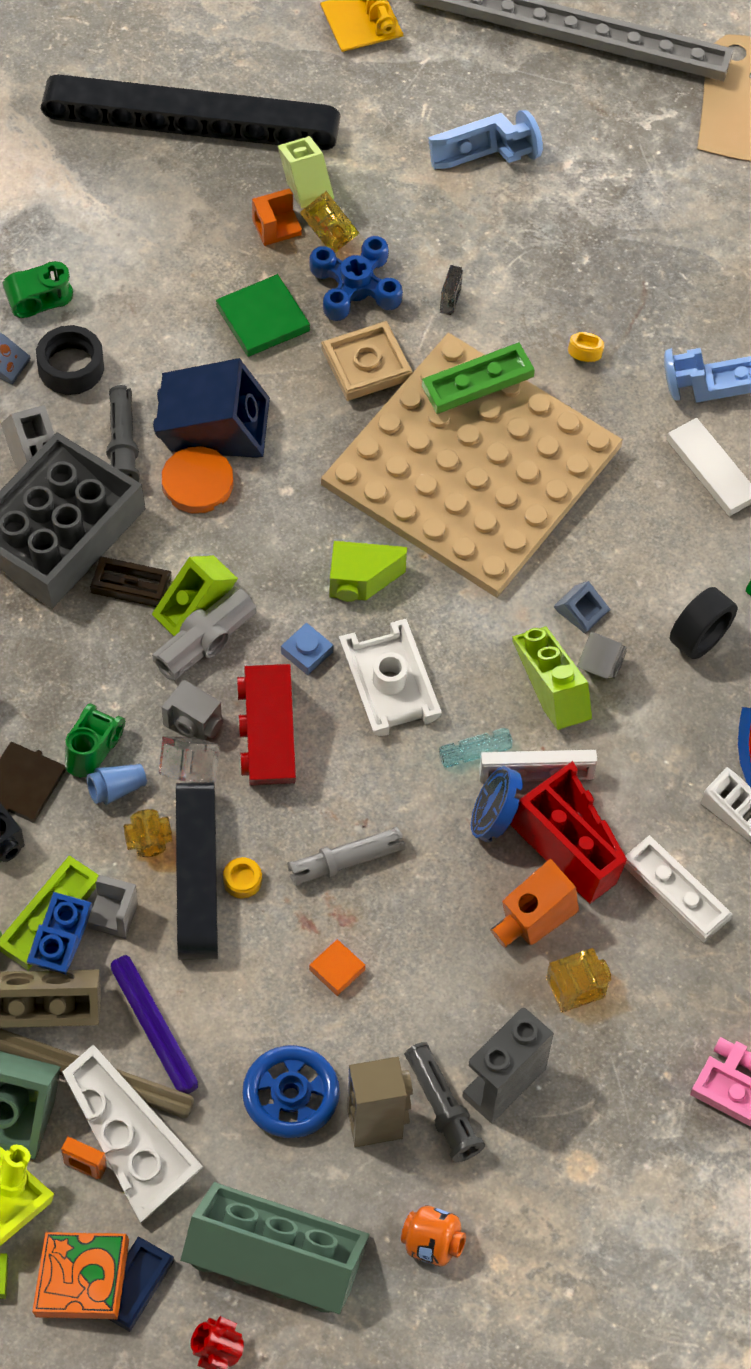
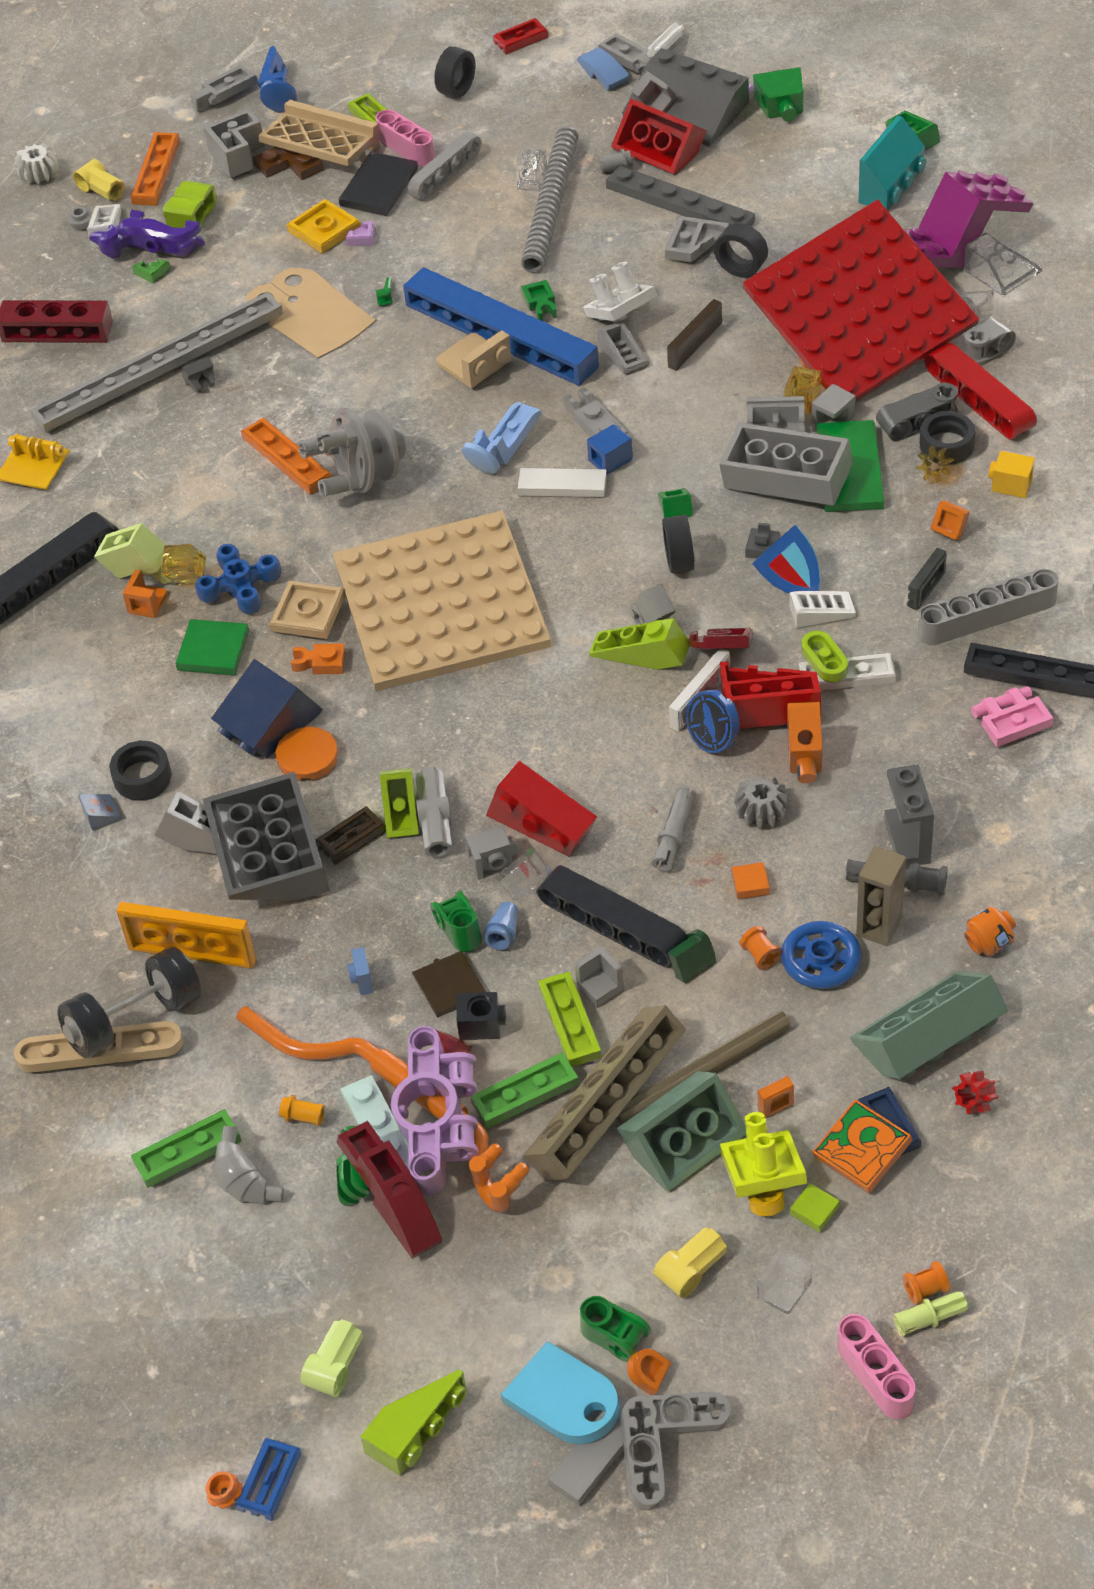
camera: 45 degrees left, 10 degrees down
(35, 291) = (63, 756): green piece -> none
(60, 933) = (596, 1014): blue slope -> none
(122, 449) = (223, 770): dark grey pin -> none
(136, 1142) = (807, 1057): white wing -> none
(147, 833) = (560, 926): clear yellow gear -> none
(154, 1025) = (708, 1005): dark purple axle -> none
(199, 972) = (692, 955): none -> dark green tile
(242, 877) = (639, 893): yellow tile -> none
(255, 1029) = (760, 947): none -> orange bush
(307, 648) = (495, 765): medium blue plate -> none
(320, 416) = (322, 660): none -> orange plate
(364, 569) = (465, 700): lime slope -> none
(395, 698) = (562, 730): white piece -> none
(428, 904) = (761, 801): none -> light grey gear
(451, 290) = (299, 534): clear smoke tile -> none
(471, 748) = (654, 716): clear light blue axle -> none
(478, 378) = (389, 550): bright green plate -> none
(487, 137) = (216, 437): light blue piece -> none
(546, 211) = (285, 455): none -> orange tile
(570, 242) = (357, 450): none -> light grey piece
(578, 979) = (871, 755): clear yellow brick -> none
(582, 606) = (600, 605): sand blue slope -> none
(585, 64) = (199, 370): none -> dark grey tile
(586, 347) = (412, 492): yellow tile -> none
(616, 747) = (722, 638): none -> dark red tile
(665, 856) = (829, 660): none -> lime plate

